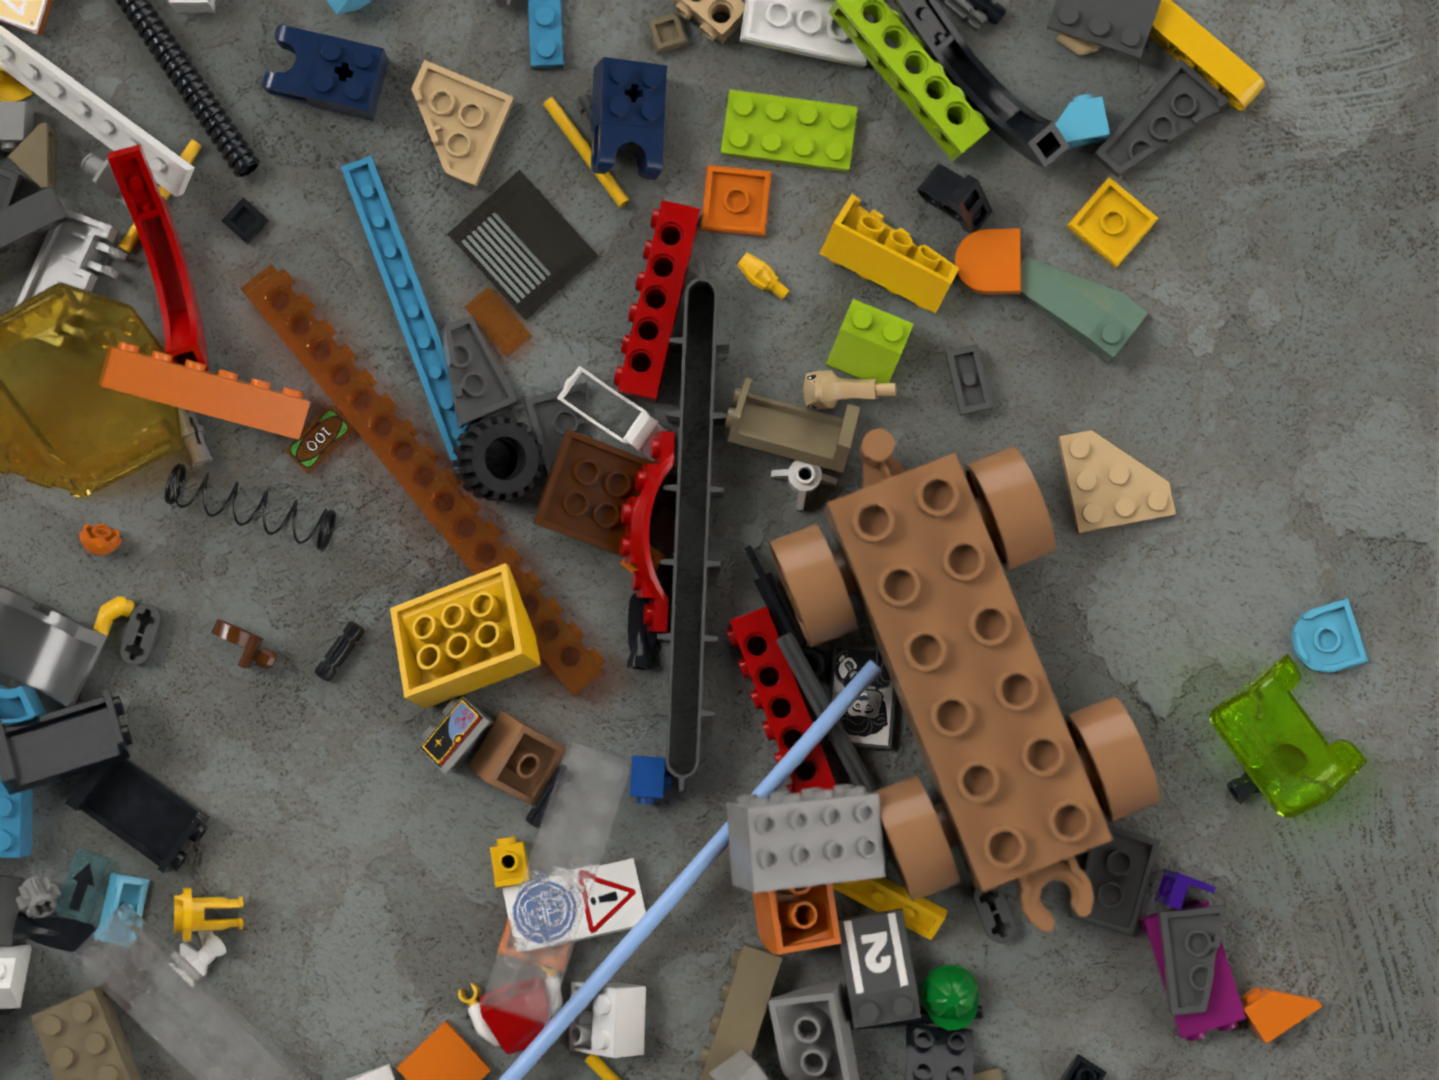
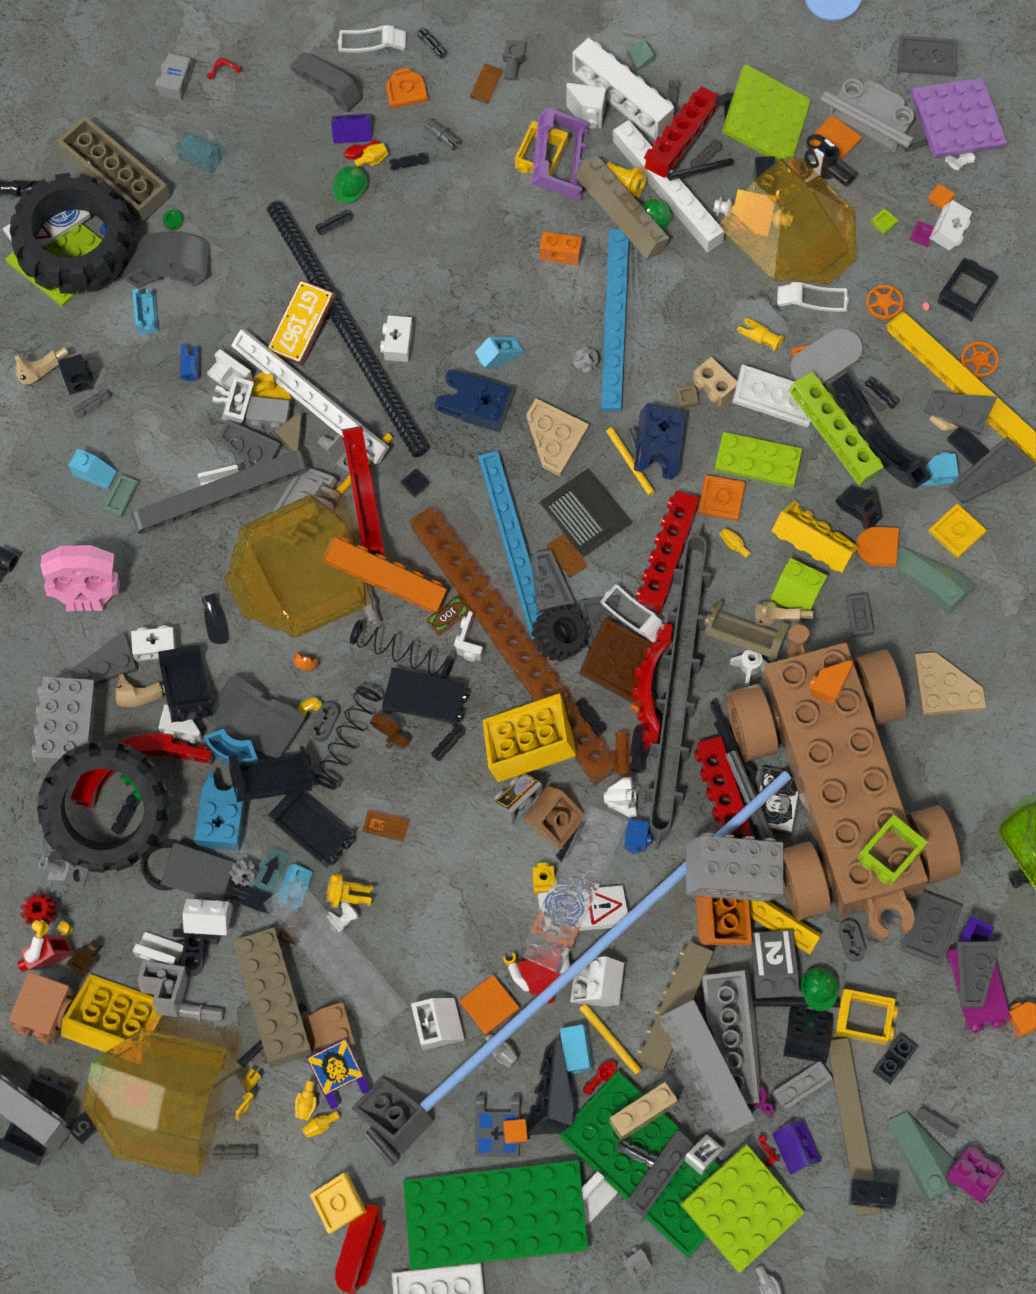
camera: 10 degrees right, 15 degrees down
(151, 736) = (330, 780): none -> black piece
(255, 795) = (385, 826): none -> clear orange tile
(295, 581) = (424, 696): none -> black panel
(360, 499) = (467, 650): none -> white bracket
(558, 587) = (590, 717): none -> black axle
(614, 644) = (622, 754): none -> clear orange pin
(621, 717) = (622, 797): none -> white brick
(936, 532) = (830, 682): none -> orange slope
(989, 1035) = (891, 1013): none -> yellow window
(1076, 778) = (906, 834): none -> lime window
(1120, 78) = (967, 445): none -> black tile

